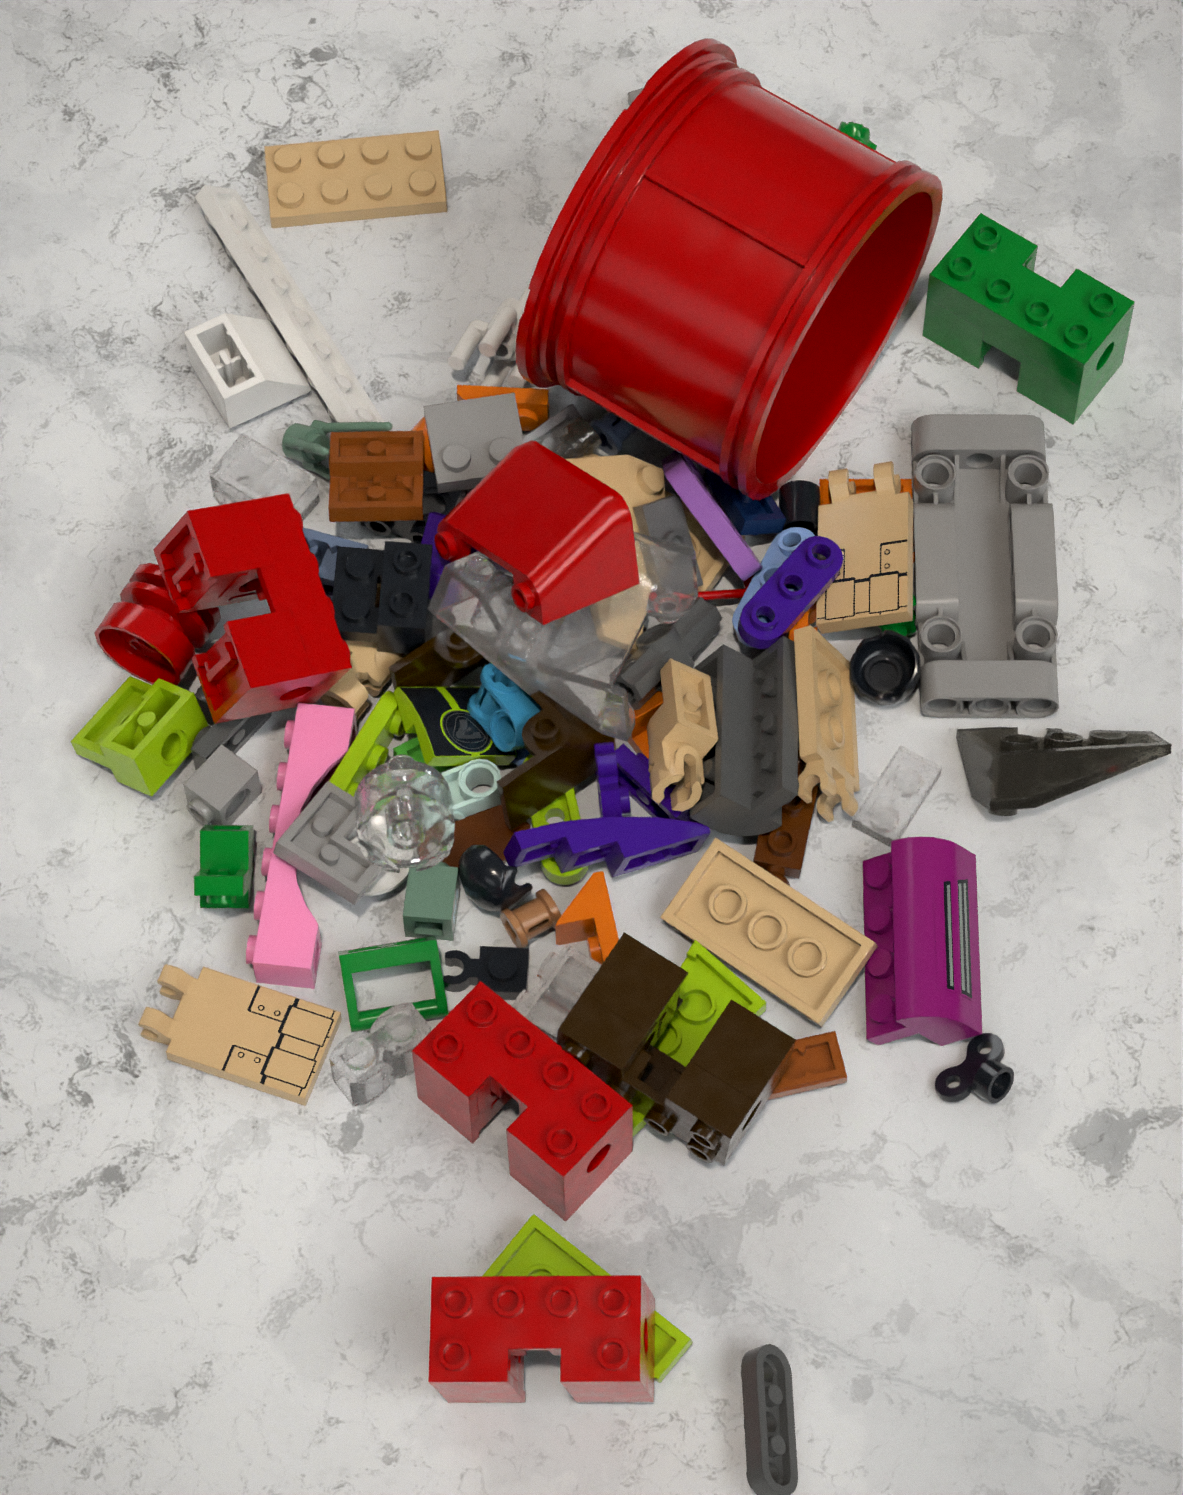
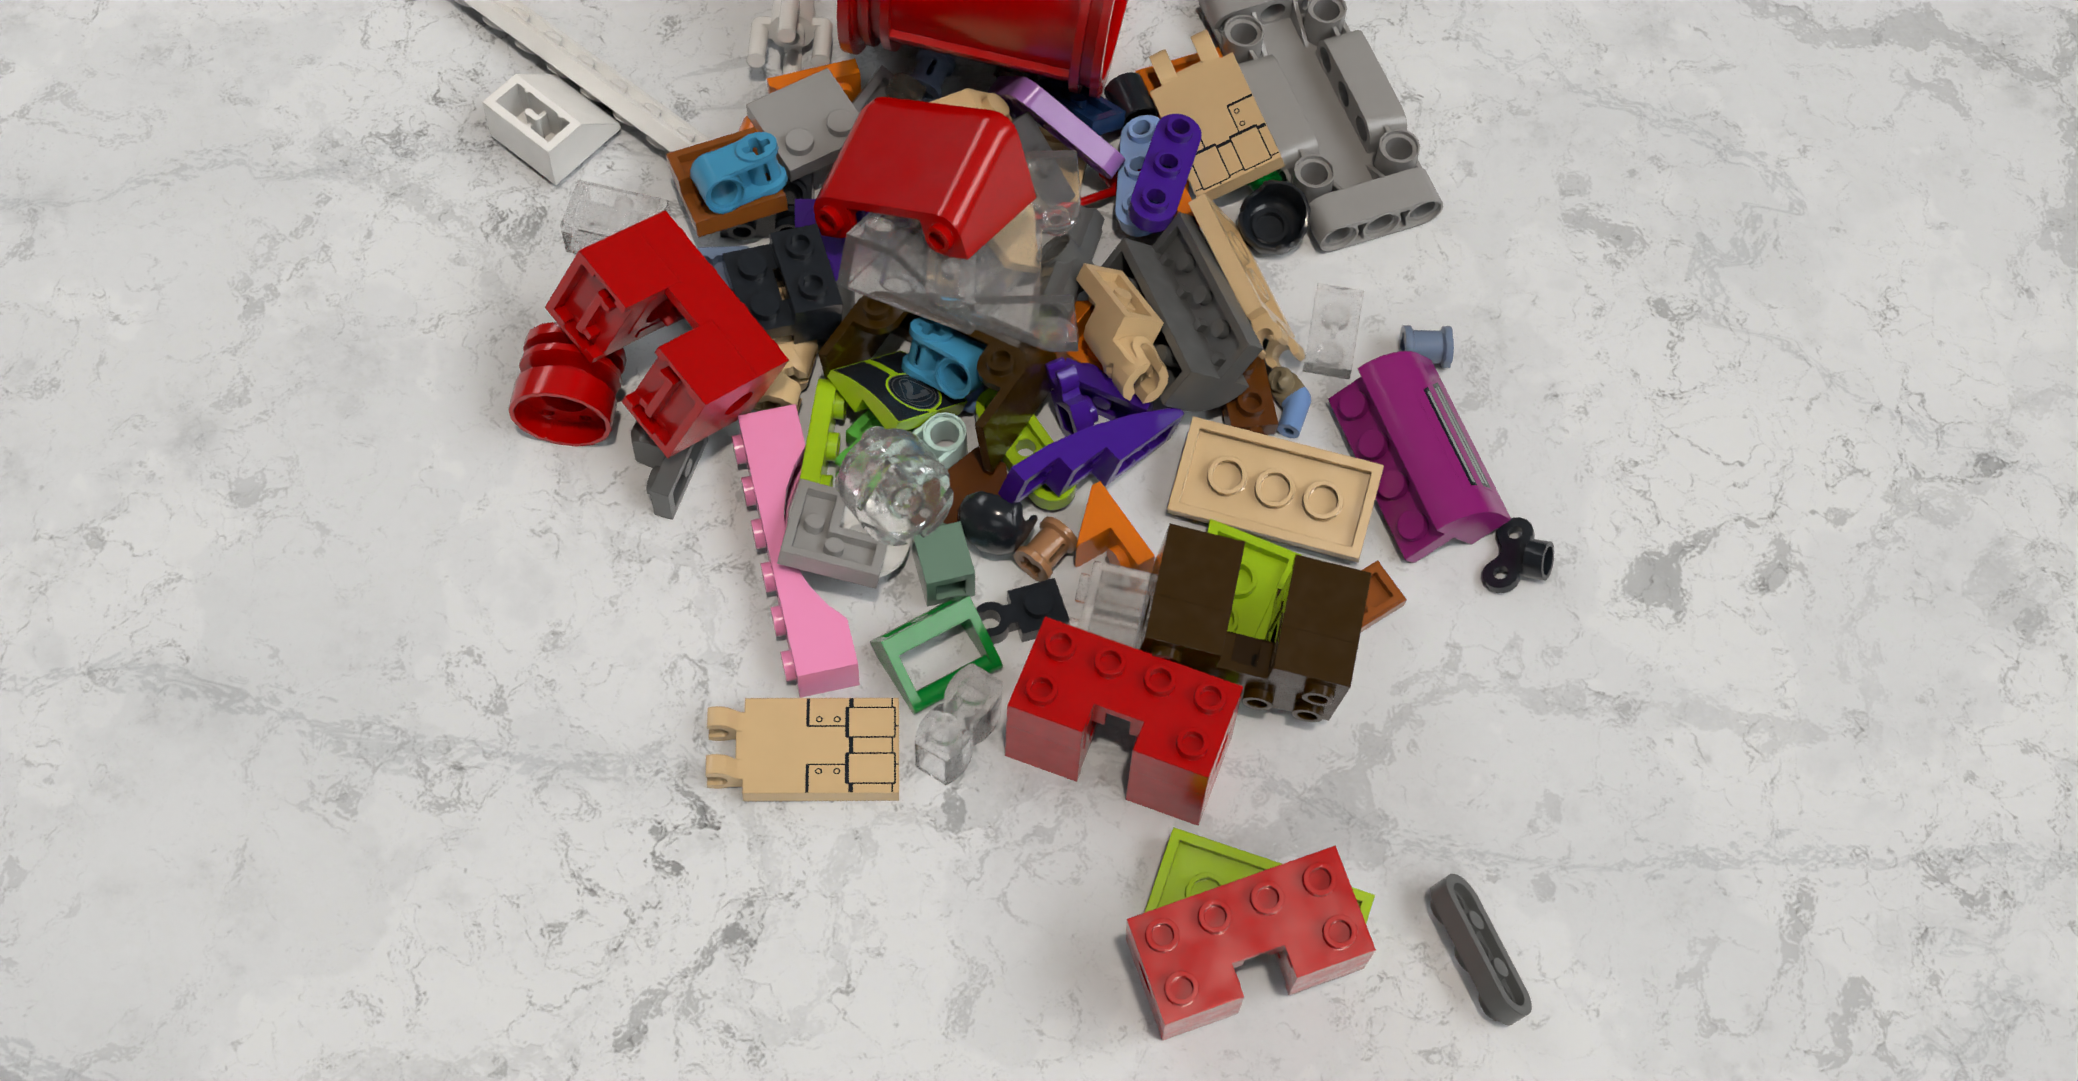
camera: 25 degrees left, 0 degrees up
(142, 733) = (591, 492): lime brick -> none
(221, 788) = (692, 521): light grey brick -> none
(225, 866) = (728, 594): green brick -> none
(312, 445) = (647, 174): sand green plant -> none
(381, 473) = (737, 175): none -> dark azure piece
(829, 848) = (1292, 398): none -> arm
(981, 839) = (1433, 344): none -> sand blue bush
(1027, 771) = (1447, 270): clear smoke wedge -> none

